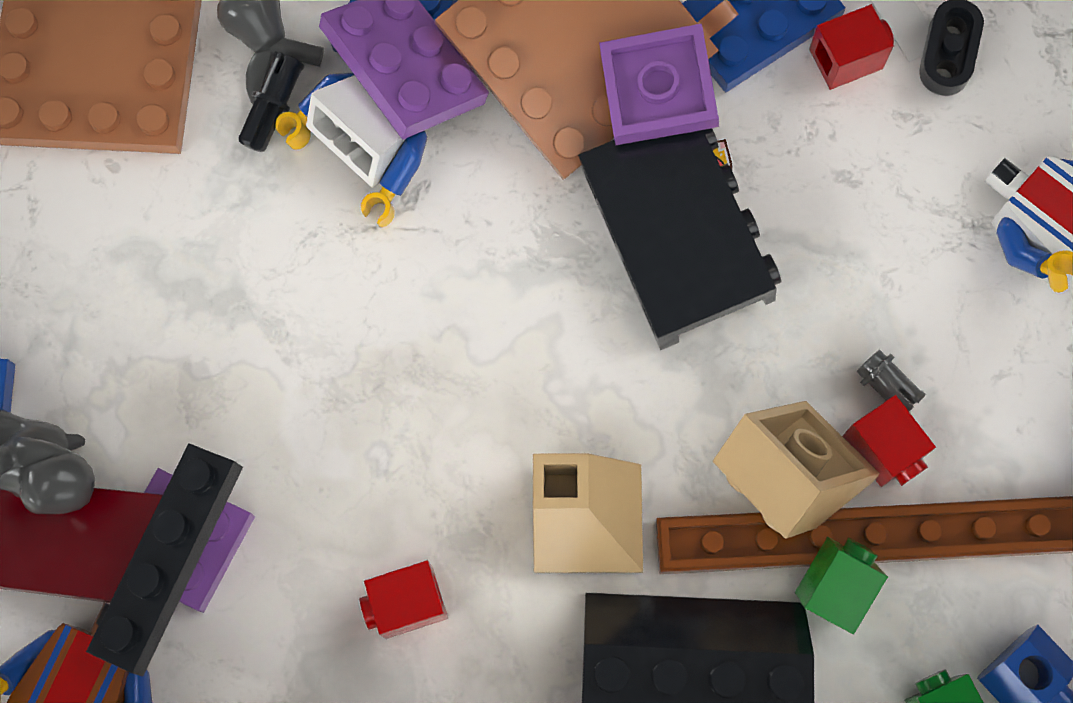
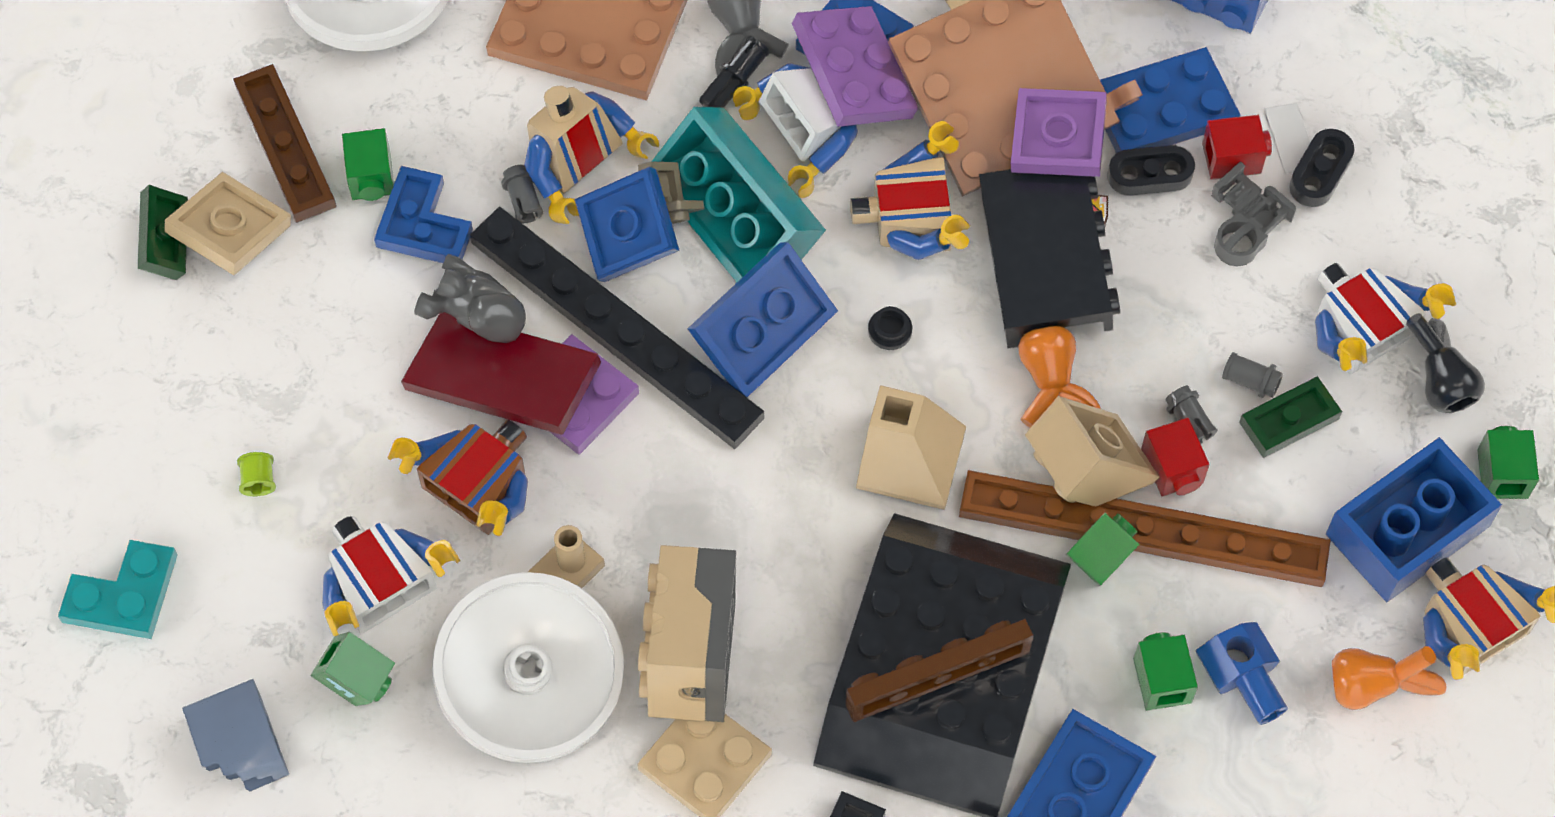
camera: 10 degrees right, 10 degrees down
(61, 305) = (521, 193): none -> dark grey pin
(100, 228) = (572, 139): none -> torso
(164, 560) = (569, 390): black plate -> none
(173, 422) = (617, 327): none -> black plate
(189, 318) = (627, 224): none -> blue plate
(222, 266) = (671, 186): none -> dark tan bracket
(306, 250) = (742, 193): none -> teal slope
(374, 397) = (763, 319): none -> blue plate
(403, 600) = (746, 478): red brick -> none
(512, 204) = (914, 200): none -> torso
(523, 363) = (890, 328): none -> black plate
(716, 360) = (1049, 359): none -> orange piece
(762, 98) = (1149, 169): none -> black plate
(893, 120) = (1253, 215): none -> dark grey piece
(946, 315) = (1253, 375): none -> dark grey pin
(1002, 356) = (1290, 417): none -> dark green plate

